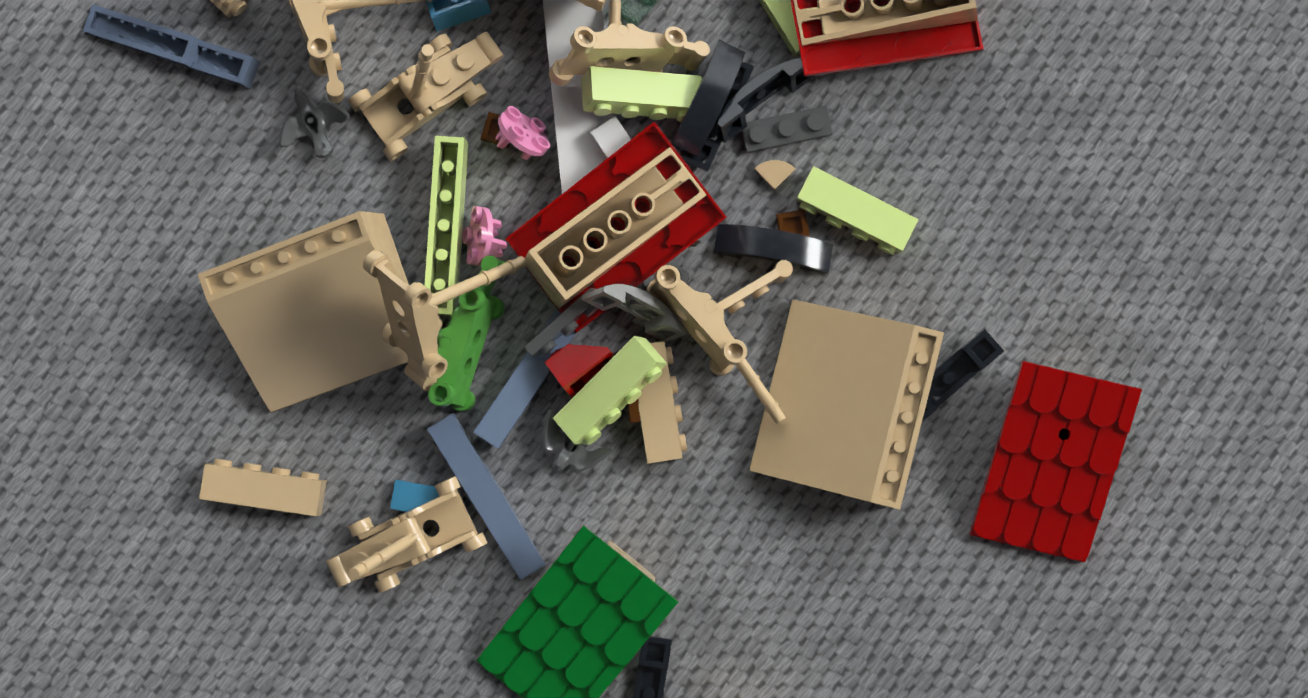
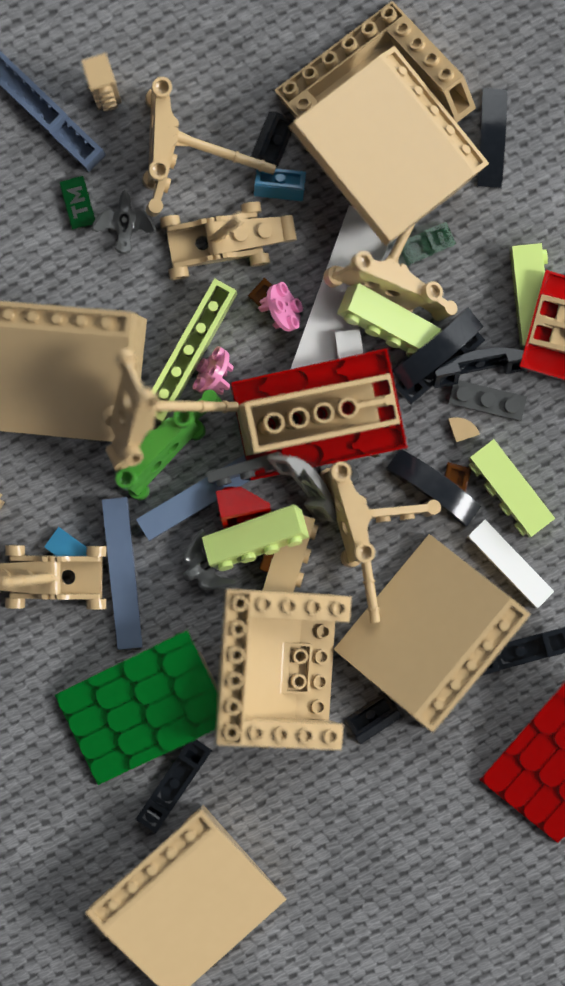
camera: 20 degrees right, 0 degrees up
(253, 126) = (78, 202): none -> dark green tile
(702, 521) = (278, 669): none -> tan slope
(826, 523) = (373, 718): none -> black slope
(893, 290) = (510, 564): none -> white slope

